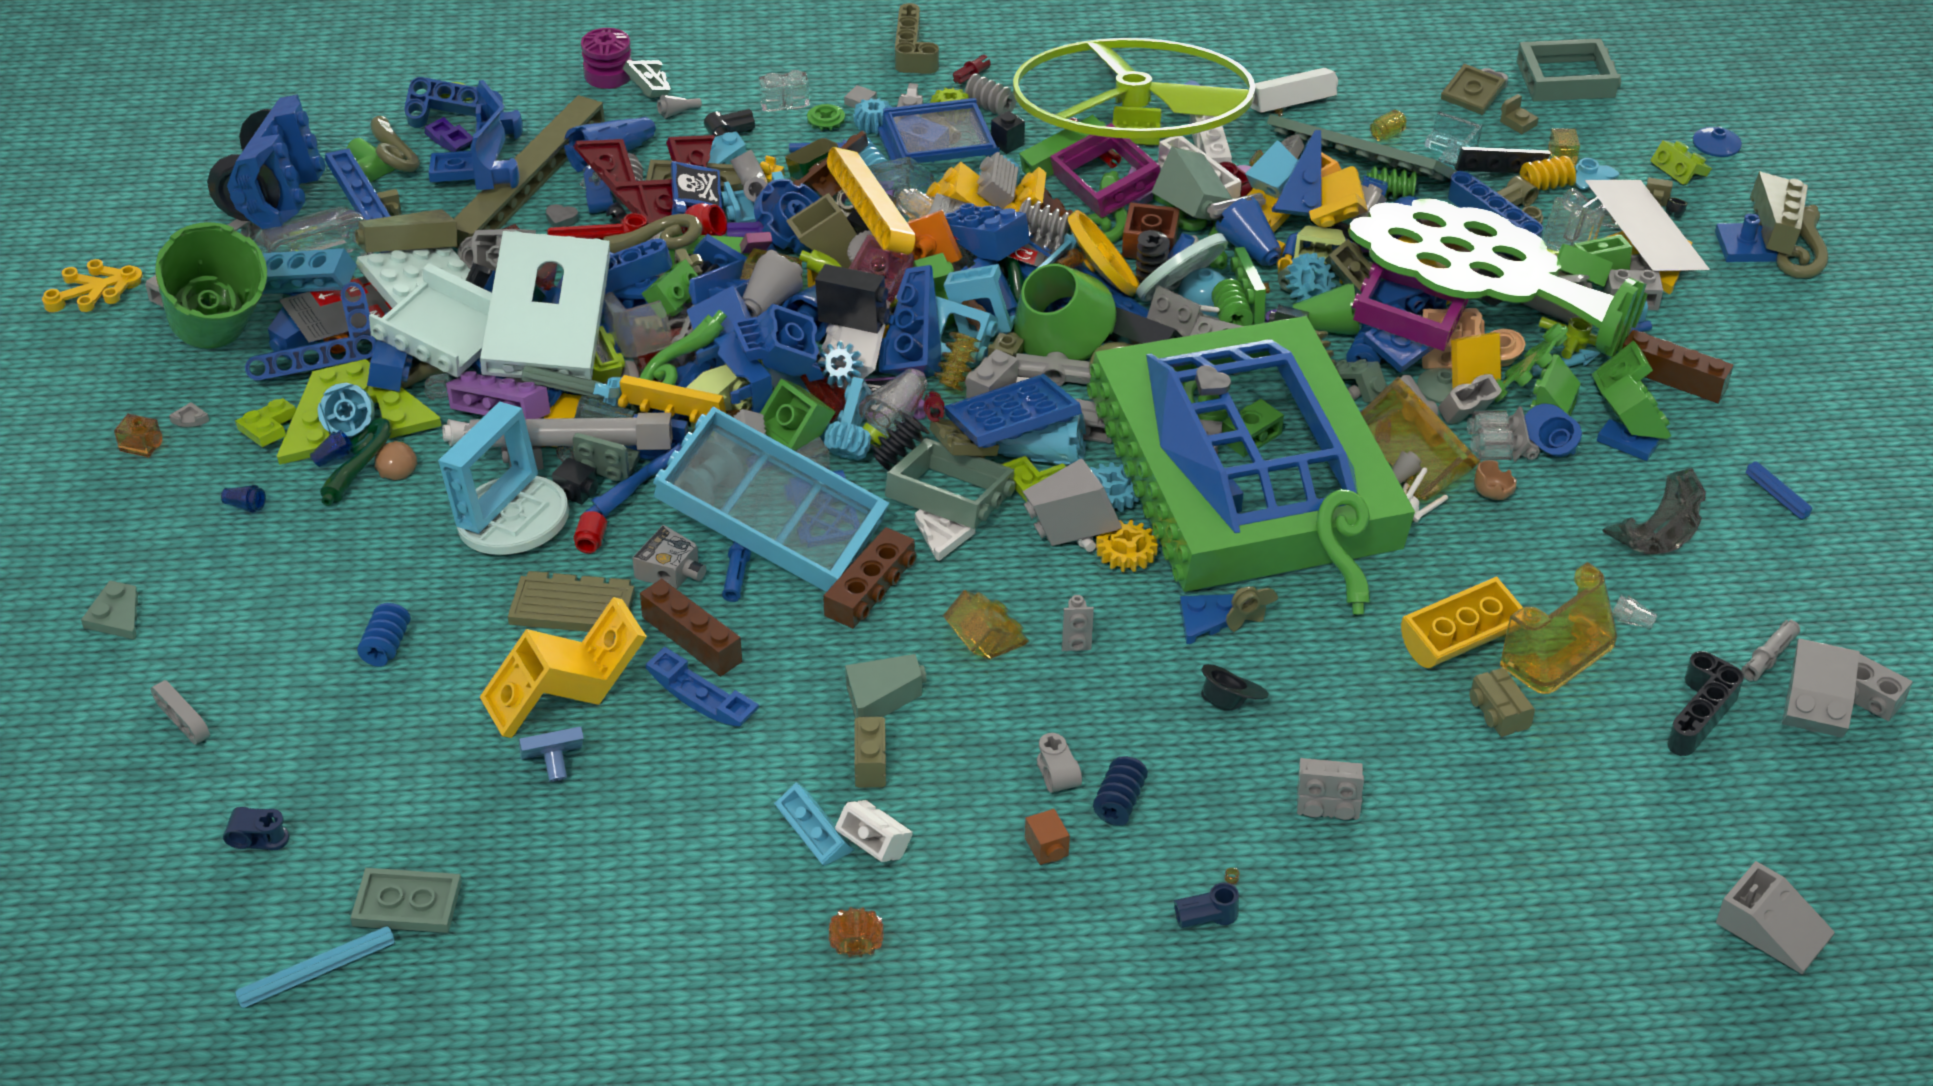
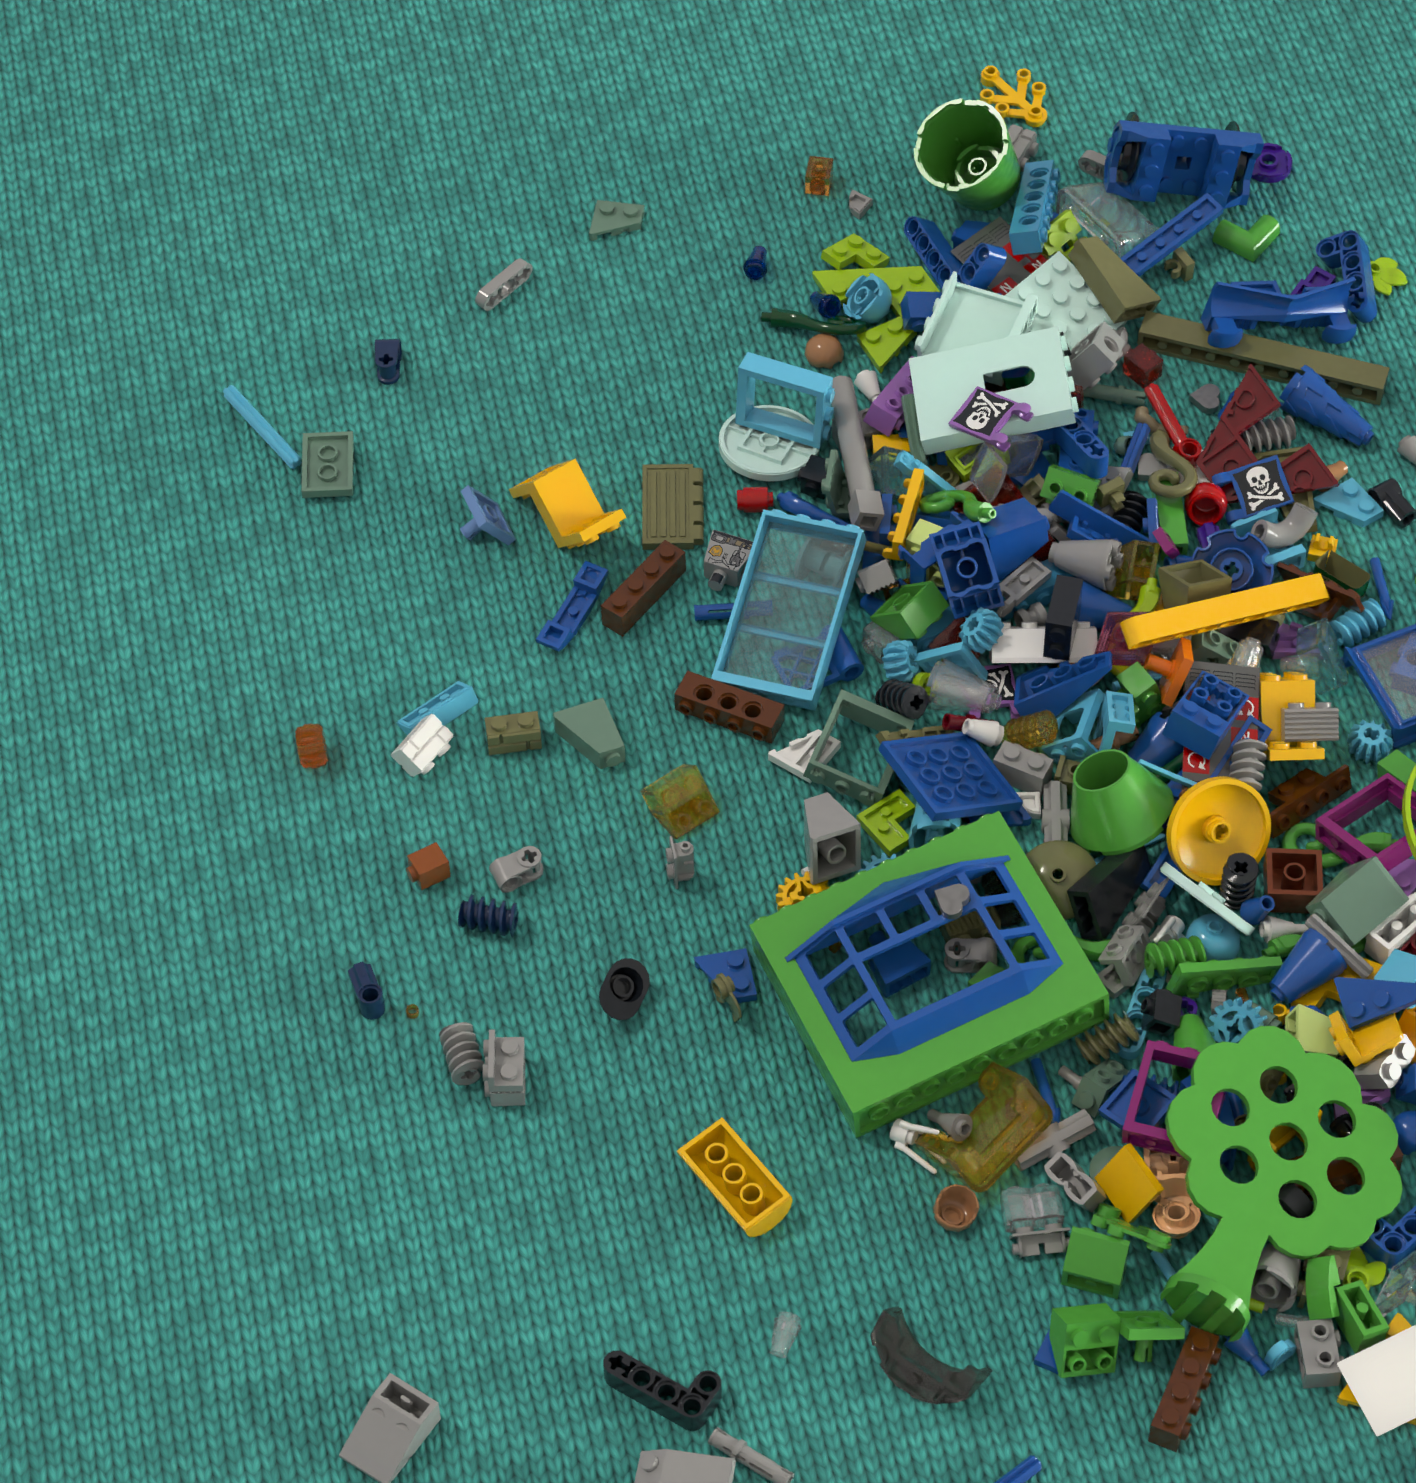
camera: 85 degrees right, 10 degrees up
(383, 634) = (605, 387): blue piece -> none
(392, 148) = (1300, 235): olive plant -> none
(589, 304) = (986, 415): none -> flag
(954, 385) = (984, 731): none -> white cone
(1275, 292) = (1218, 998): none -> light grey axle
(1299, 825) = (462, 1053): none -> light grey piece
(1356, 583) = (777, 1081): bright green plant -> none
(1501, 702) = (640, 1213): olive brick -> none
(1553, 430) = (1037, 1262): blue piece -> none
(1558, 646) = (724, 1269): clear yellow windscreen -> none

